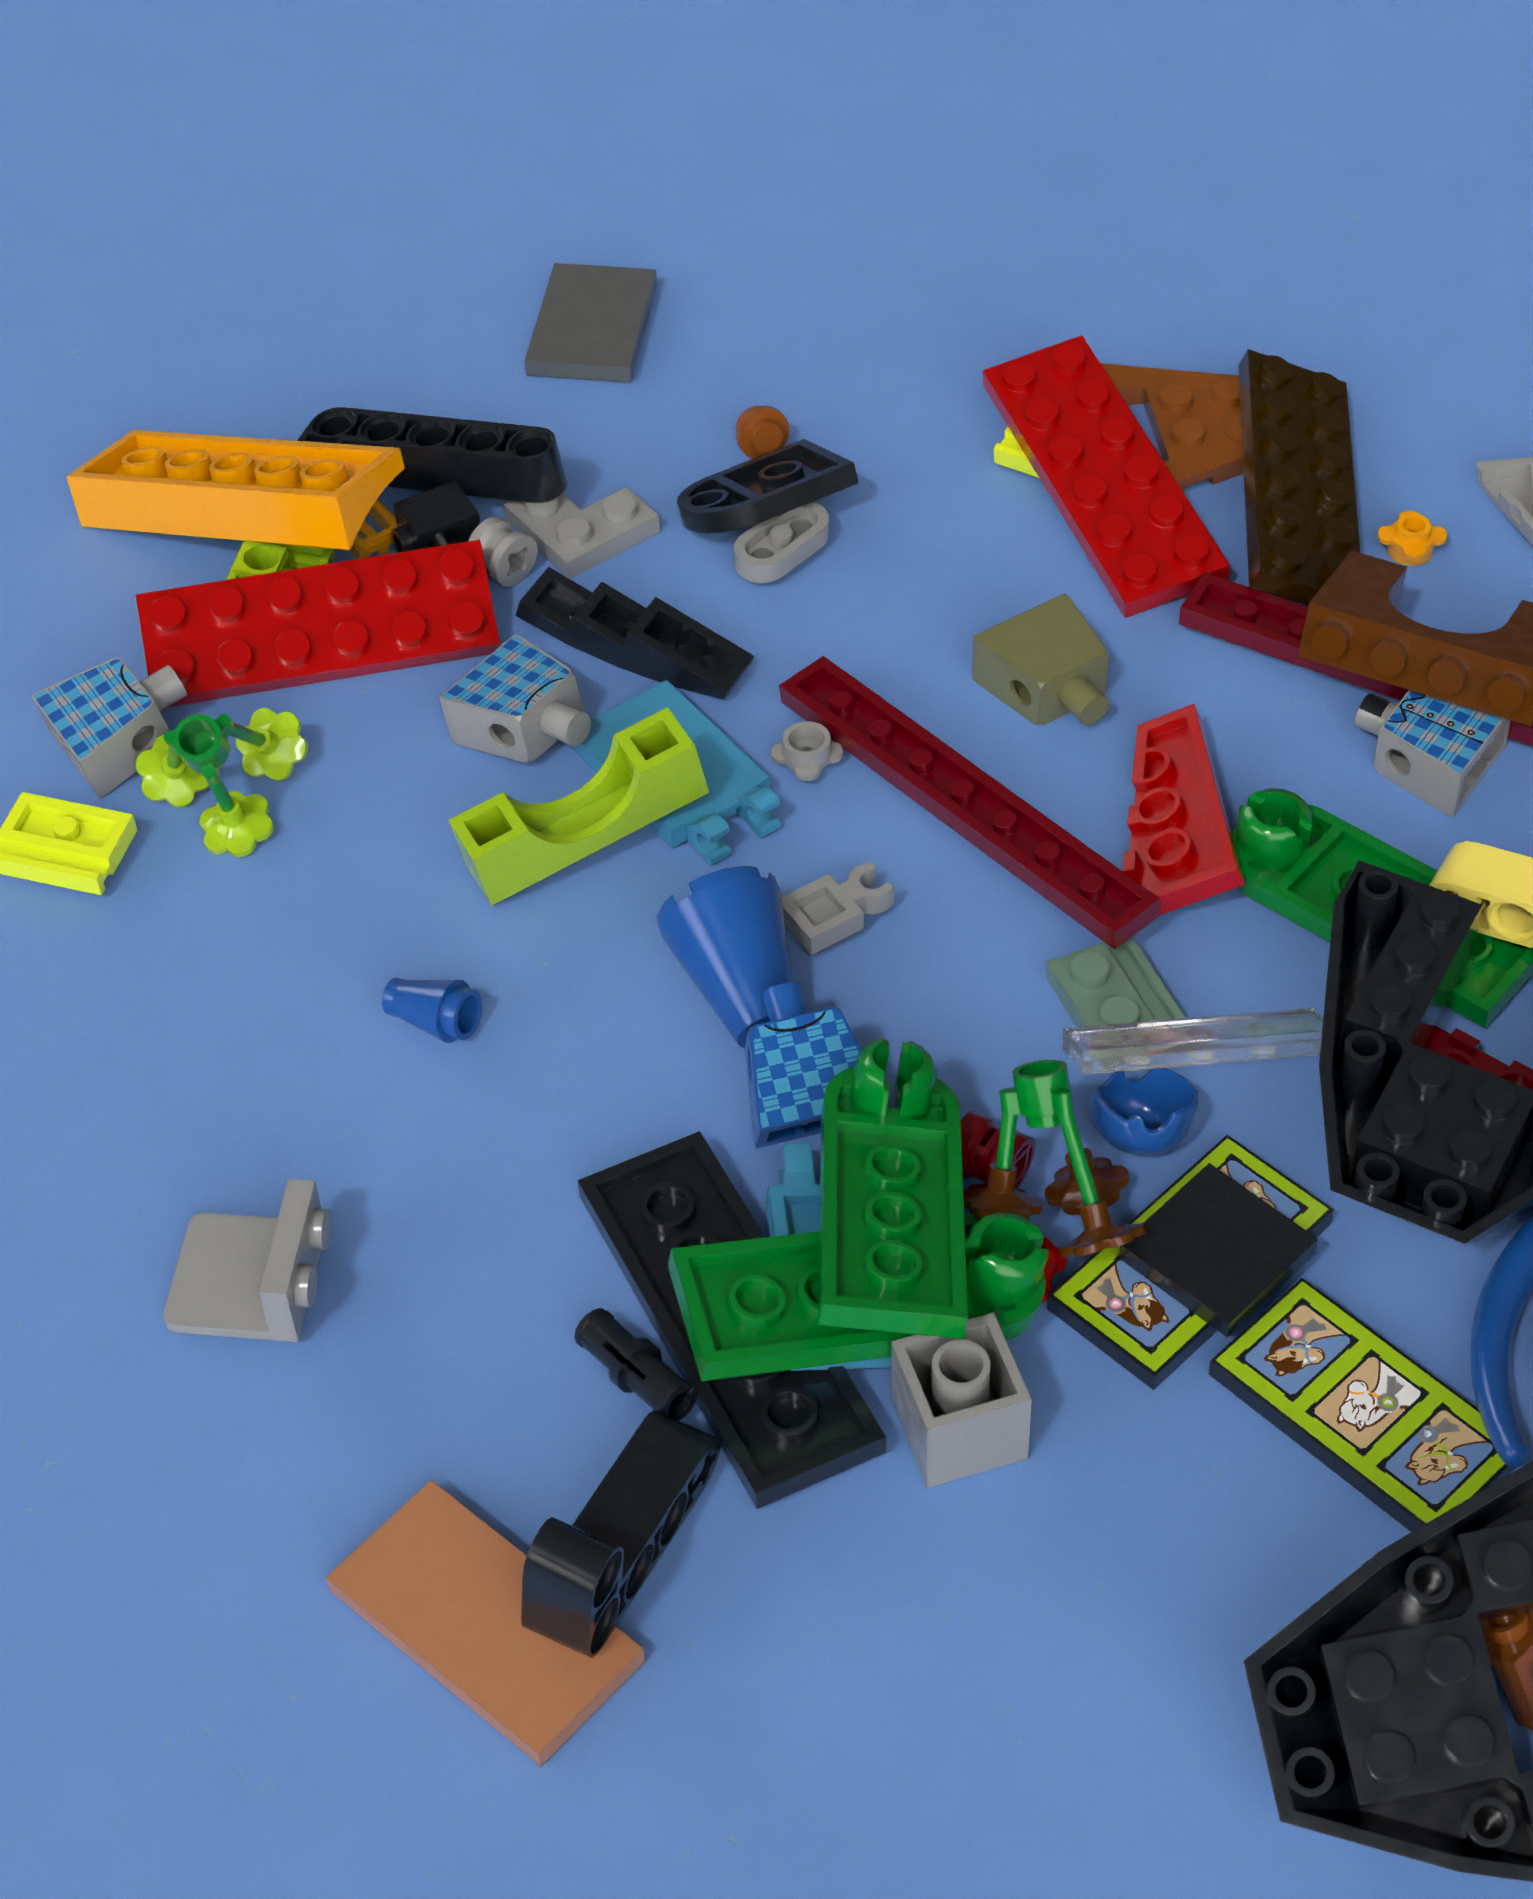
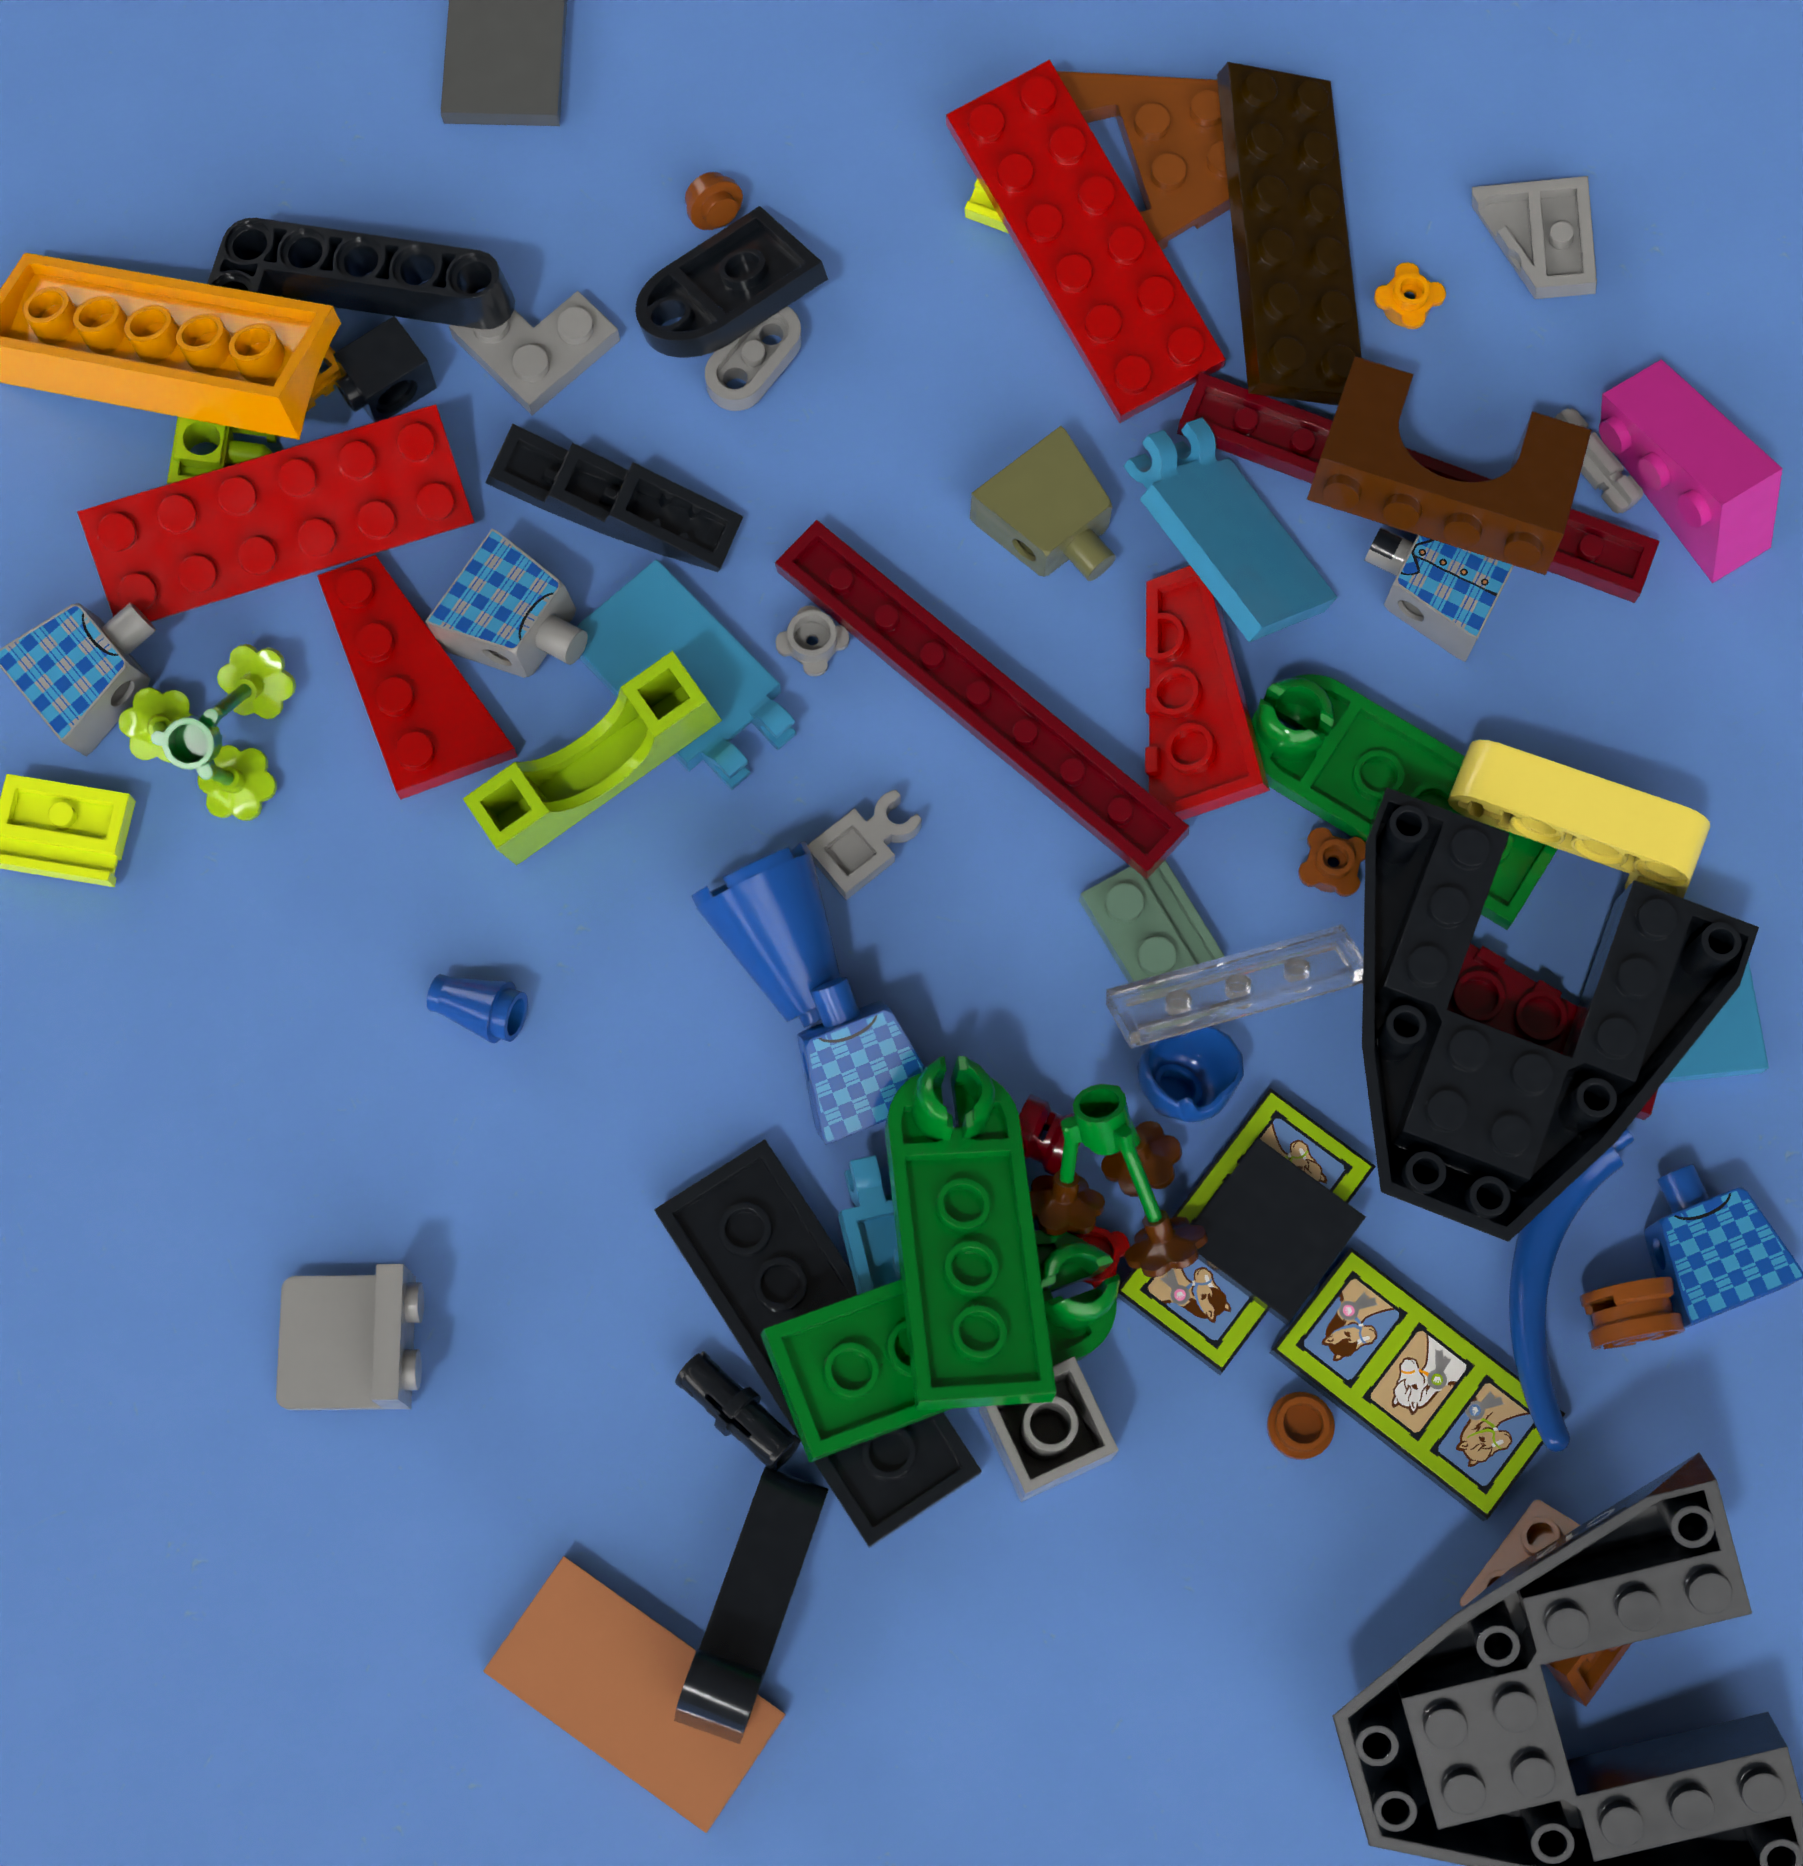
camera: 10 degrees left, 25 degrees up
(412, 757) = (413, 693): none -> red wing
(505, 552) = (458, 397): light grey wheel -> none
(1221, 687) = (1228, 533): none -> dark azure tile
(1236, 1435) = (1300, 1425): none -> dark orange plate
(1302, 958) = (1317, 871): none -> dark orange plate

